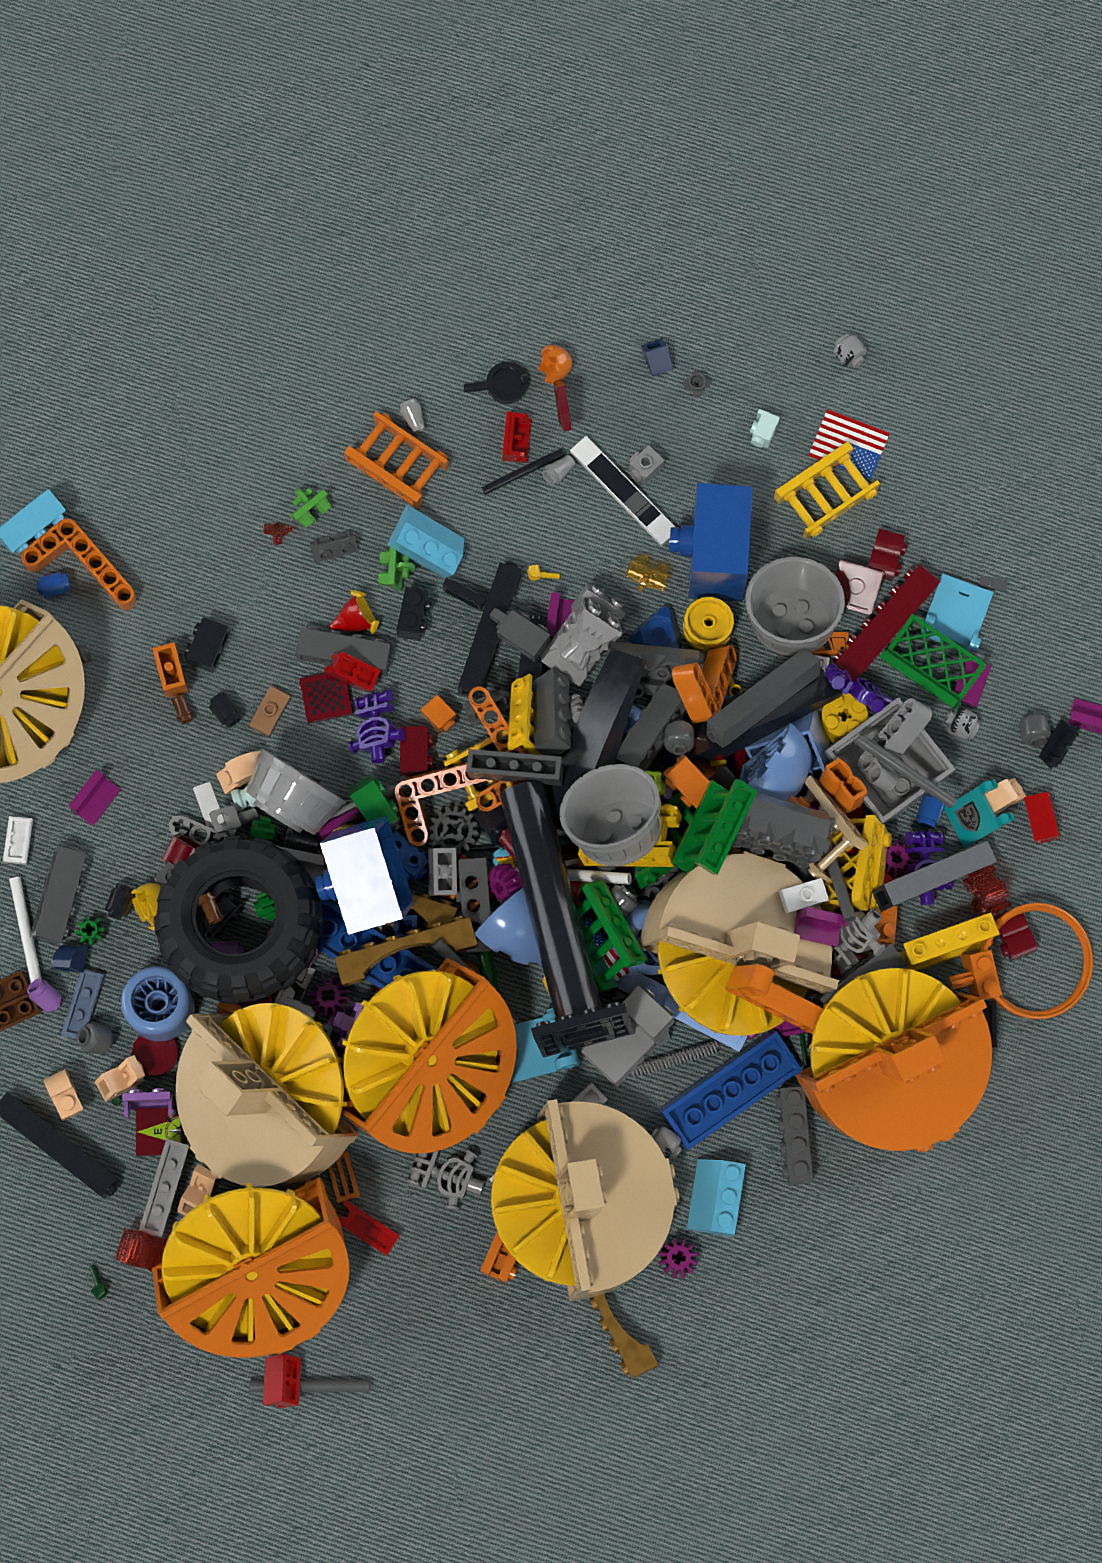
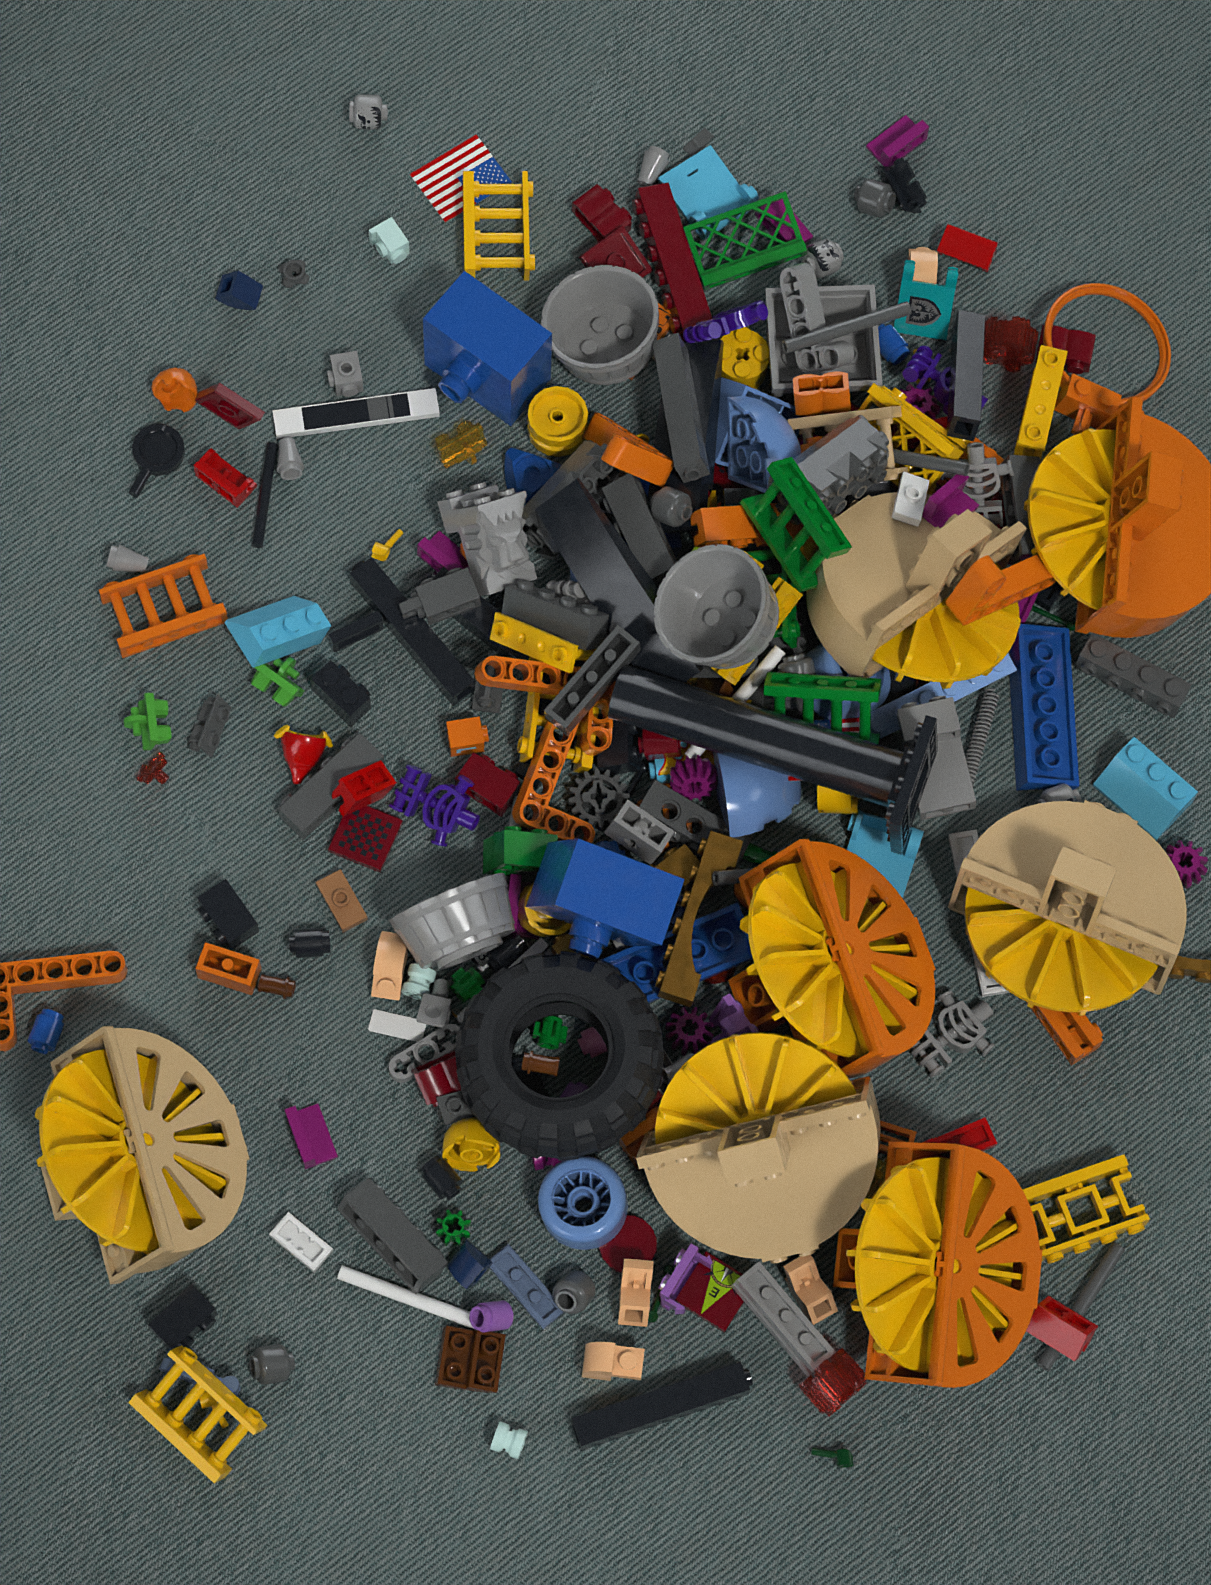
camera: 60 degrees left, 5 degrees down
(388, 1328) = (1072, 1186): none -> yellow fence
(949, 564) = (652, 165): none -> light grey cone

